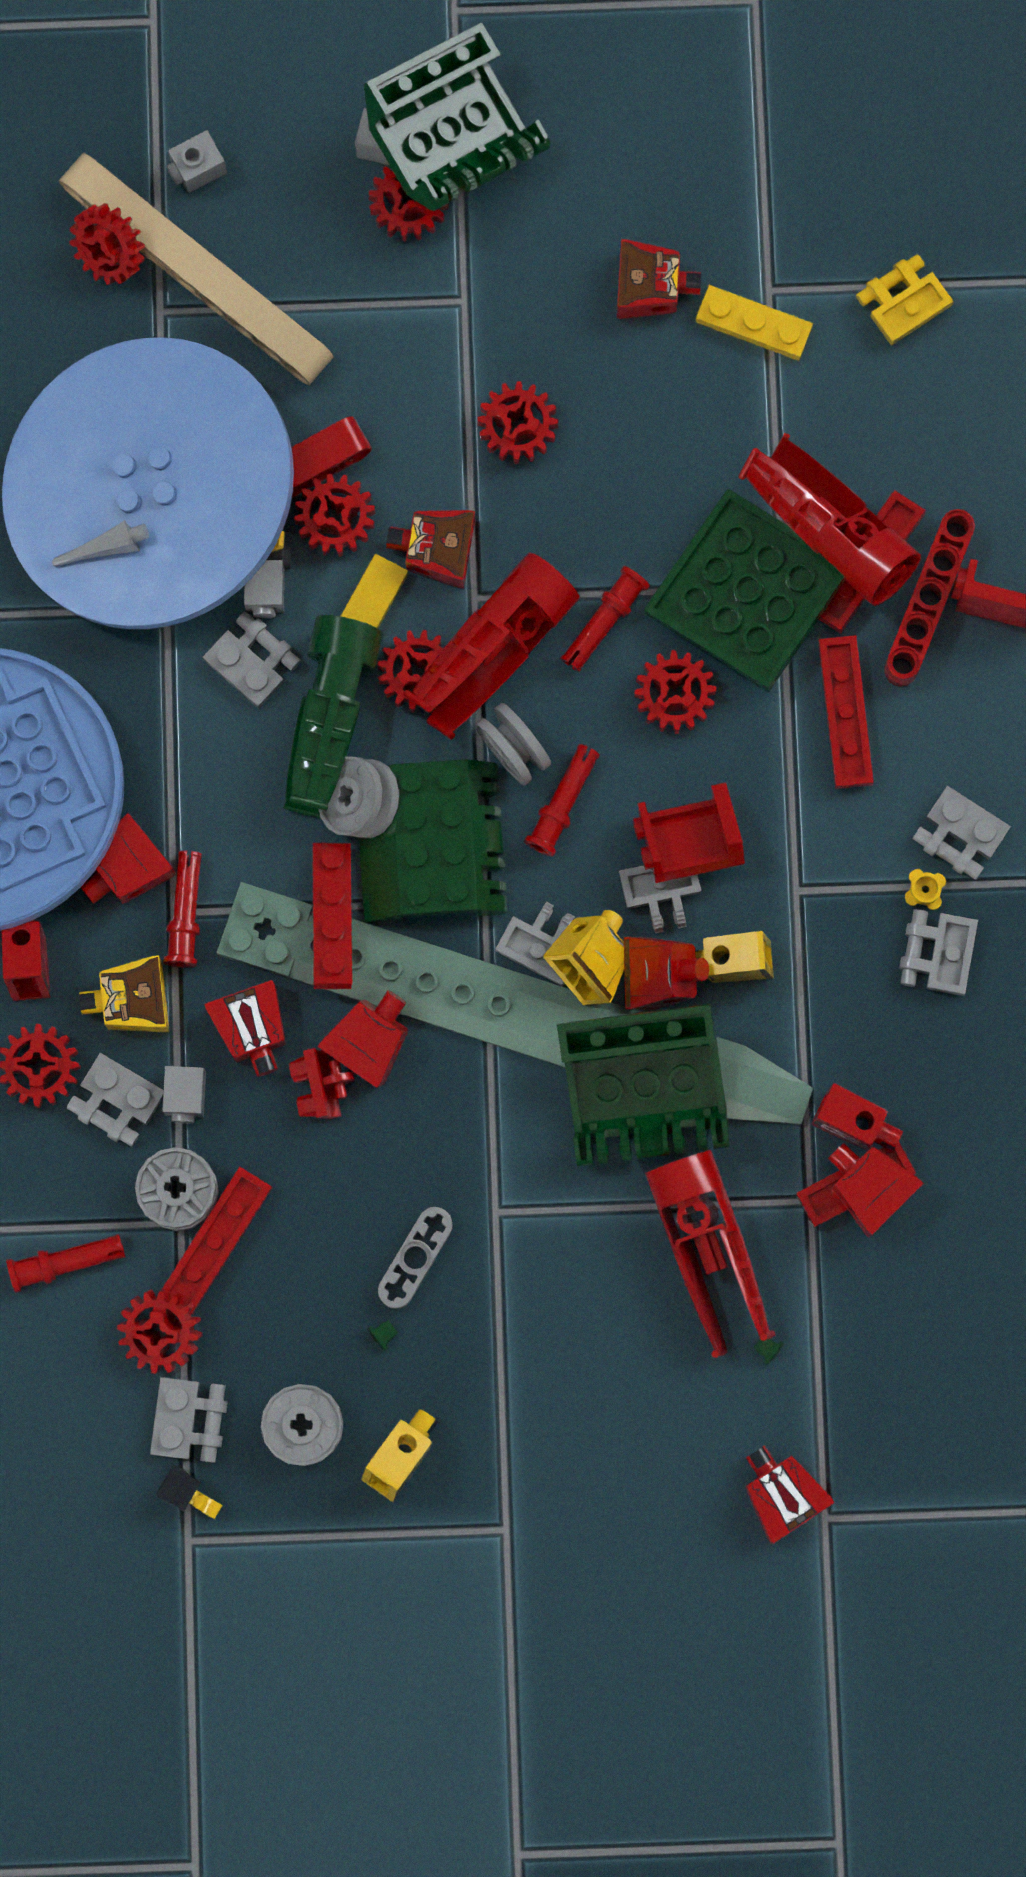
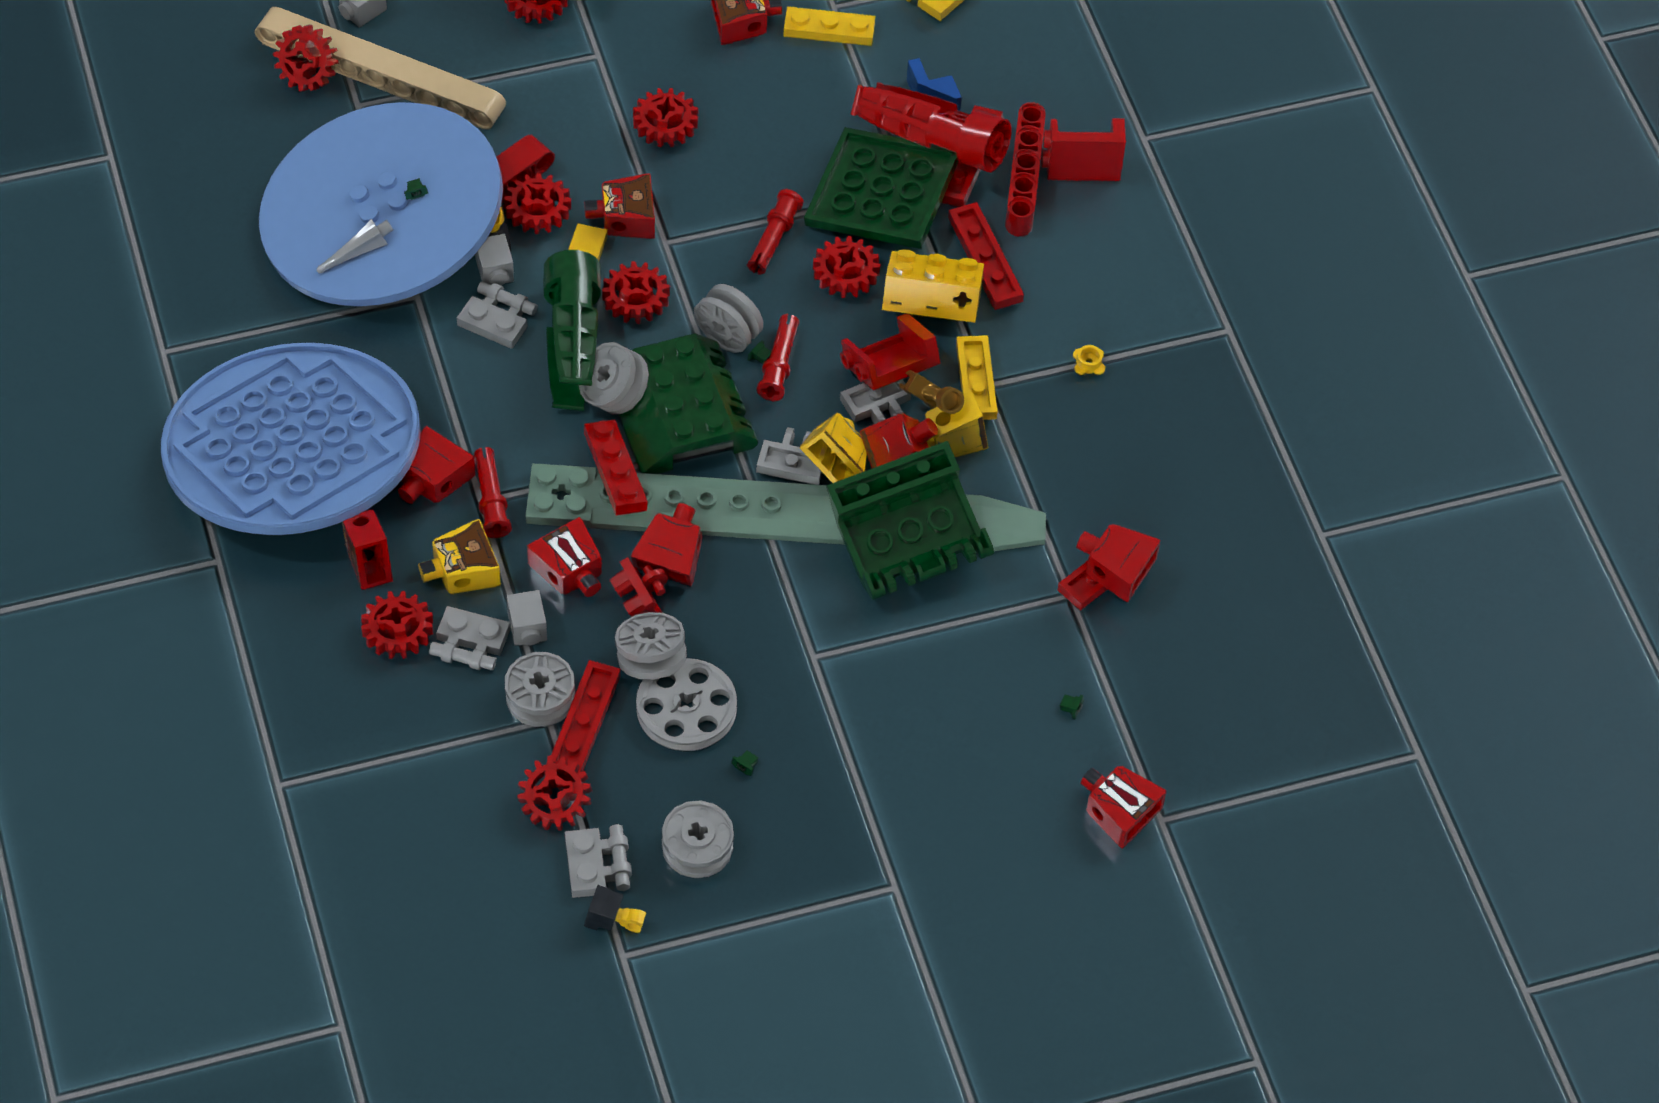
camera: 20 degrees left, 25 degrees down
(47, 1266) = (443, 769): red pin -> none
(187, 484) = (415, 189): none -> dark green piece
(311, 1147) = (650, 645): none -> light grey wheel
(337, 1223) = (686, 717): none -> light grey wedge
(392, 1467) = (792, 829): yellow torso -> none
(422, 1228) = (759, 713): light grey beam -> none
(493, 643) = (696, 250): red piece -> none
(543, 786) = (759, 353): none -> dark green piece
(687, 1186) = (965, 591): red piece -> none
(725, 907) = (946, 399): none -> pearl gold bar
(765, 754) = (933, 286): none -> yellow piece
(785, 883) = (977, 372): none -> yellow plate
(838, 1117) = (1082, 511): red torso -> none
(857, 462) = (942, 88): none -> blue slope
(950, 956) = (1125, 399): light grey plate -> none
(966, 823) = (1107, 312): light grey plate -> none

